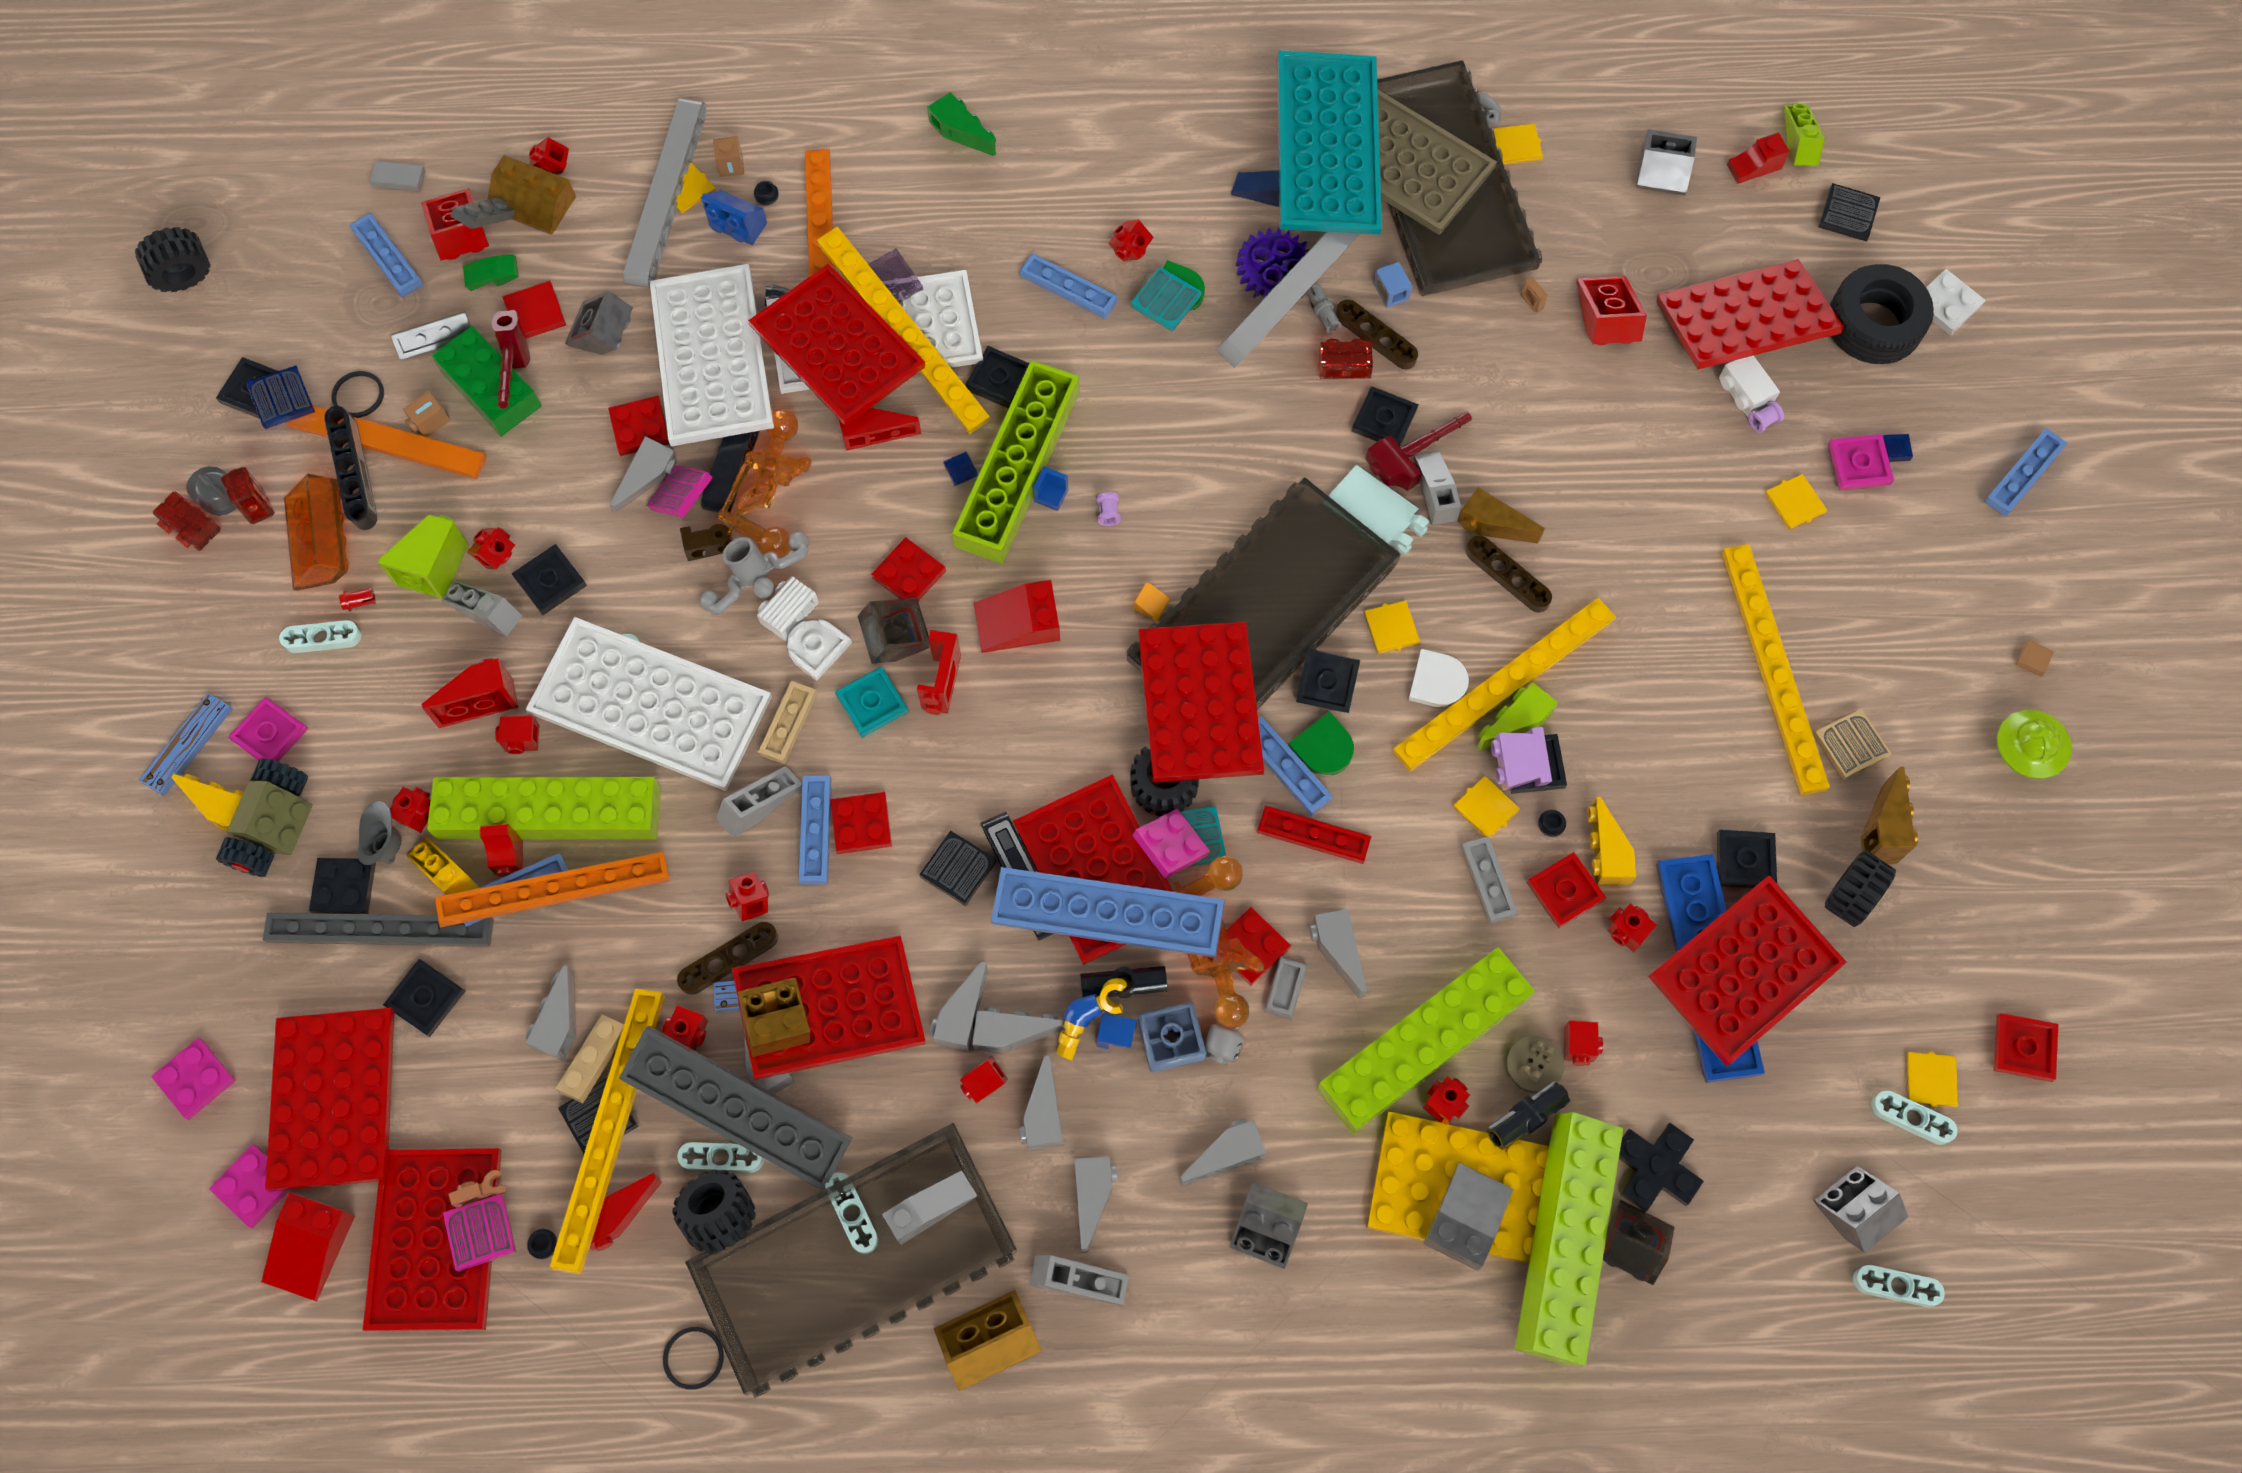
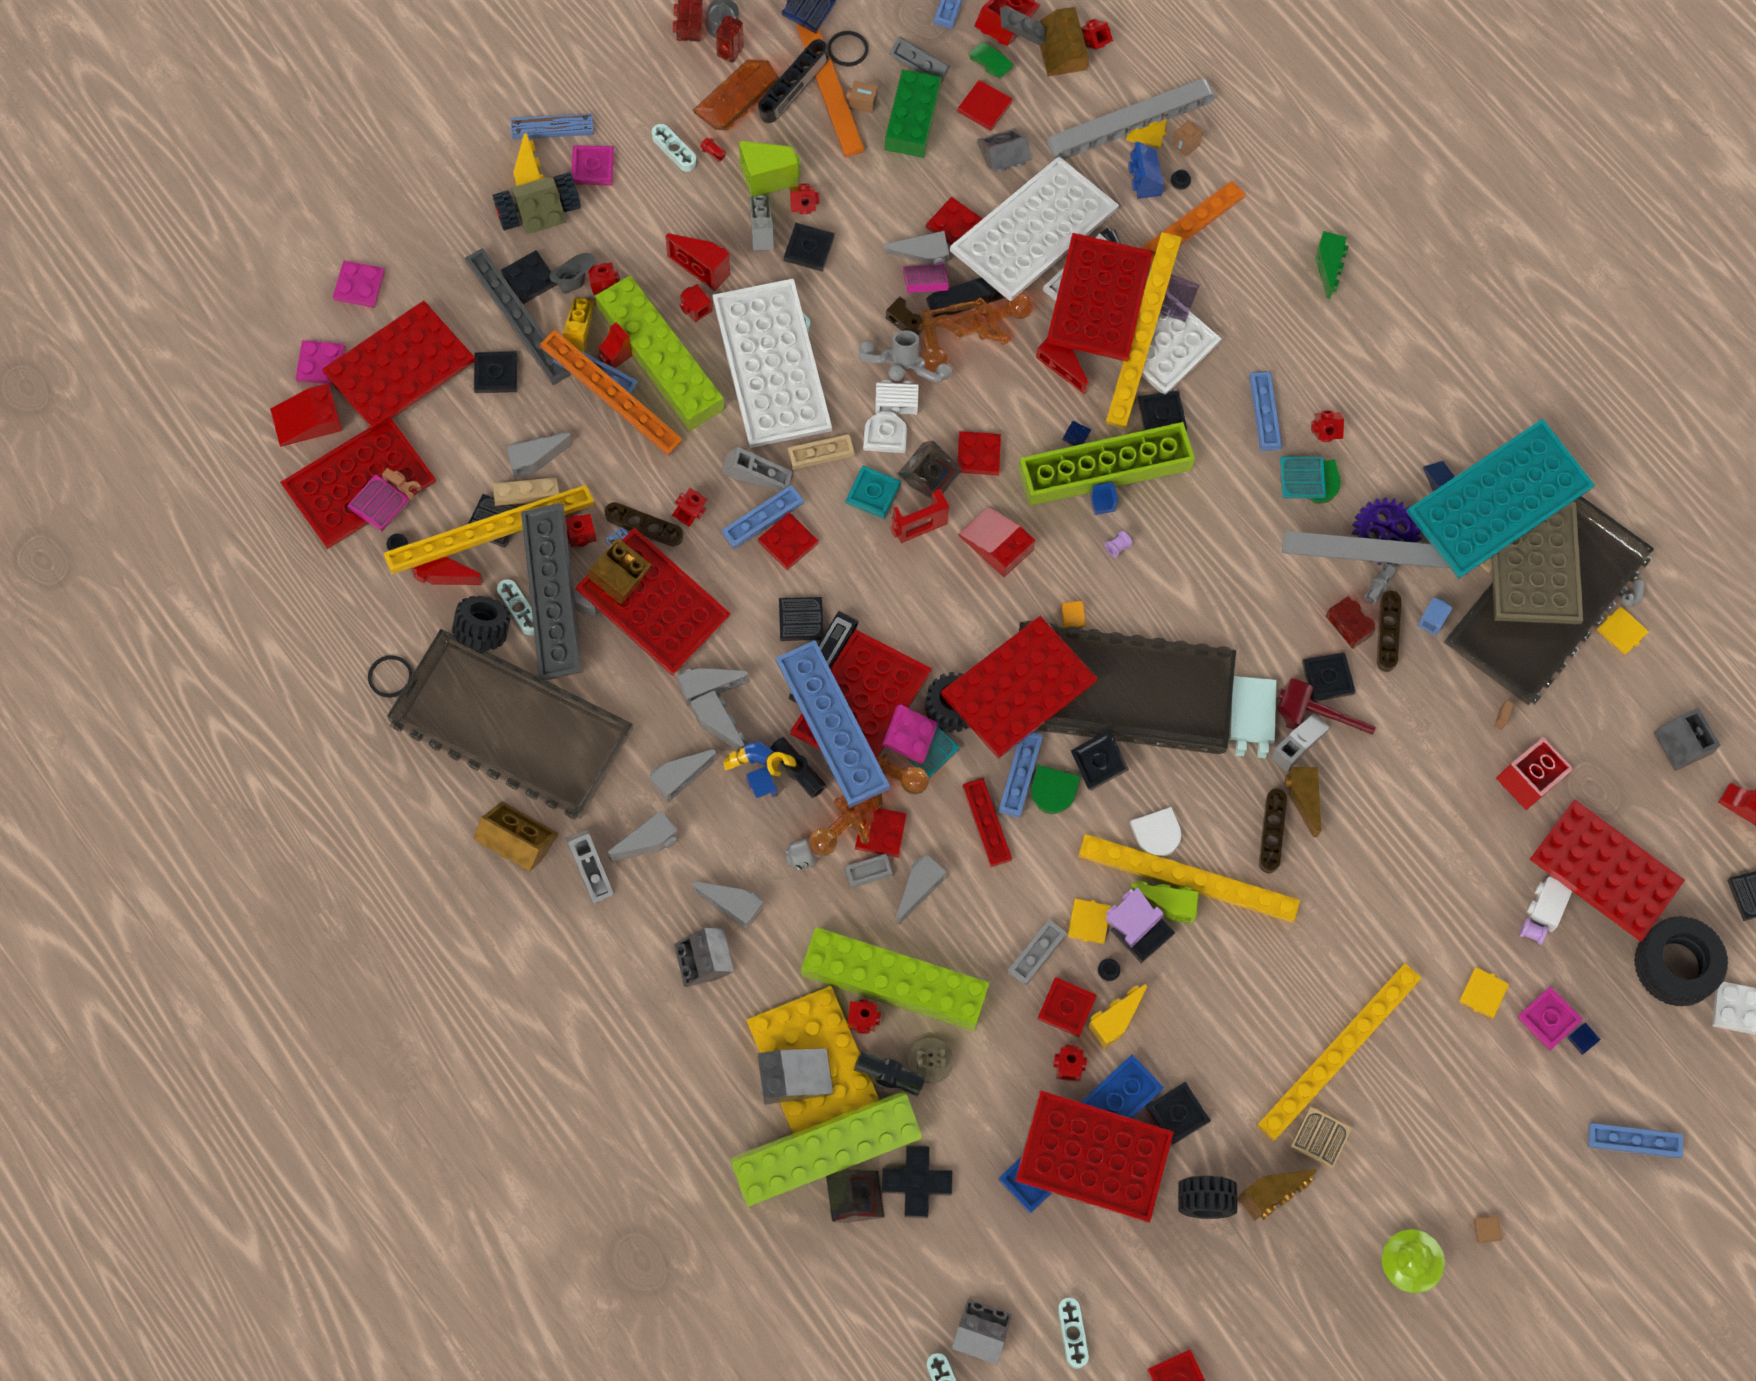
camera: 50 degrees right, 0 degrees up
(513, 349) = (944, 114): dark red piece -> none
(868, 1229) = (528, 707): light aqua beam -> none
(929, 1207) = (568, 742): light grey slope -> none
(983, 1080) = (673, 724): red brick -> none
(1183, 1022) = (782, 806): sand blue brick -> none
(1391, 627) = (1174, 779): yellow piece -> none
(1582, 1042) = (966, 1080): red brick -> none
(1932, 1079) = (1110, 1331): yellow piece -> none

